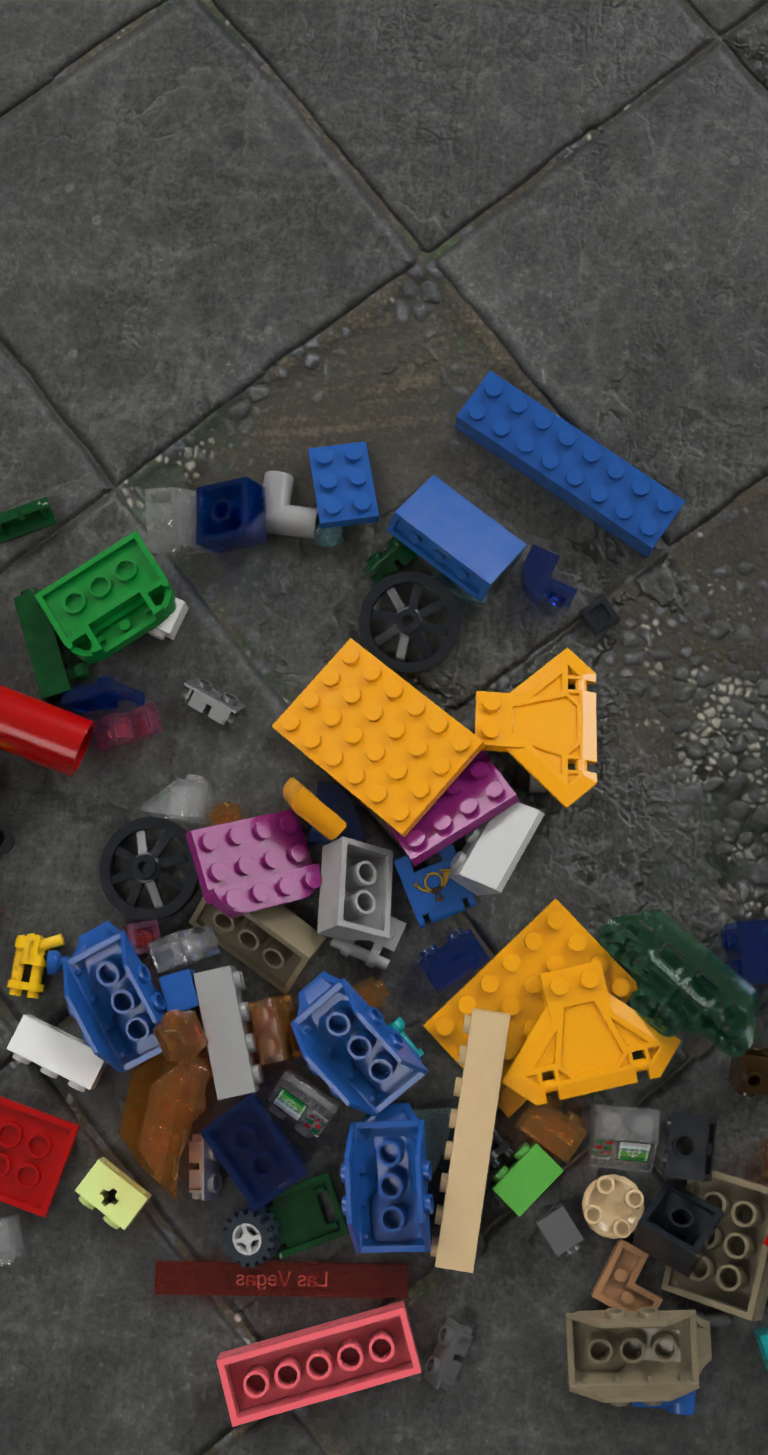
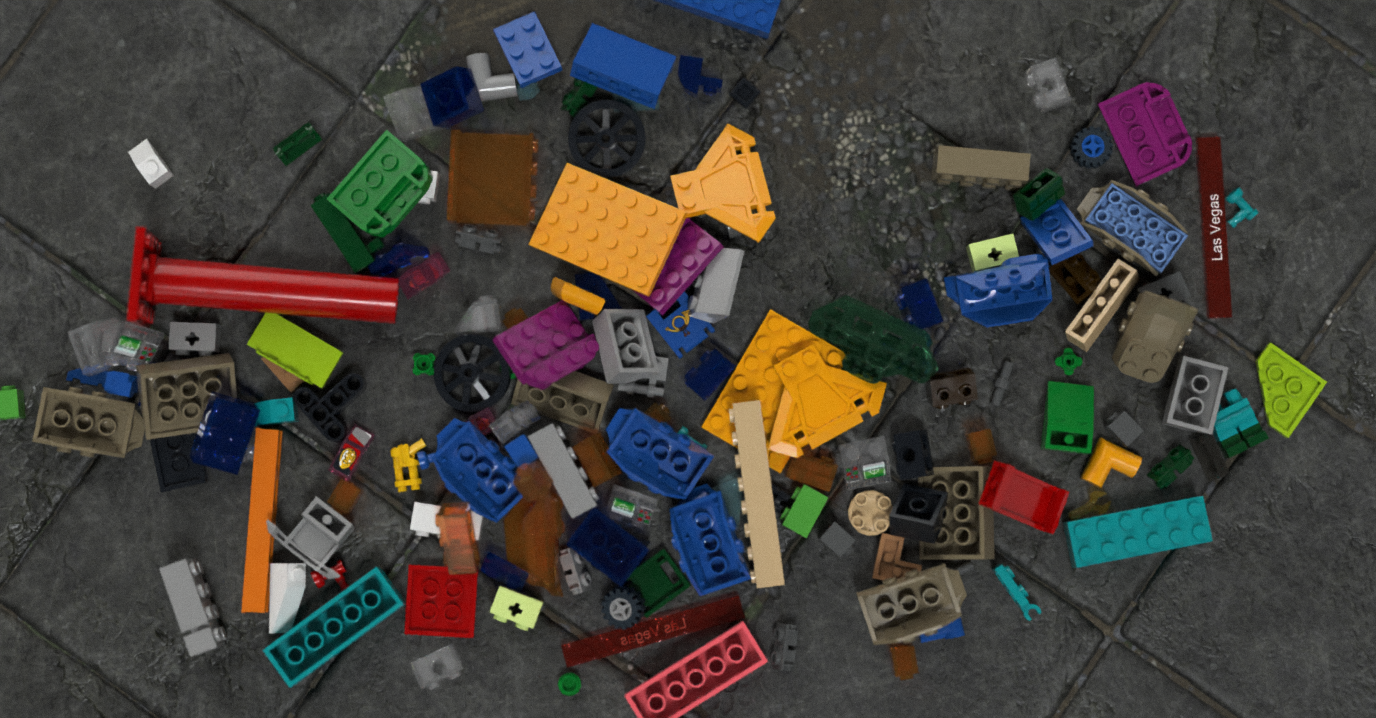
camera: 20 degrees left, 5 degrees up
(62, 1080) = (458, 538): none -> clear orange brick
(90, 831) = (419, 359): none -> green plate
(112, 1141) = (504, 571): none -> clear blue plate
(151, 1317) = (569, 684): none -> green plate
(250, 631) = (491, 179): none -> clear orange panel
(602, 1426) = (904, 661): none -> clear orange brick

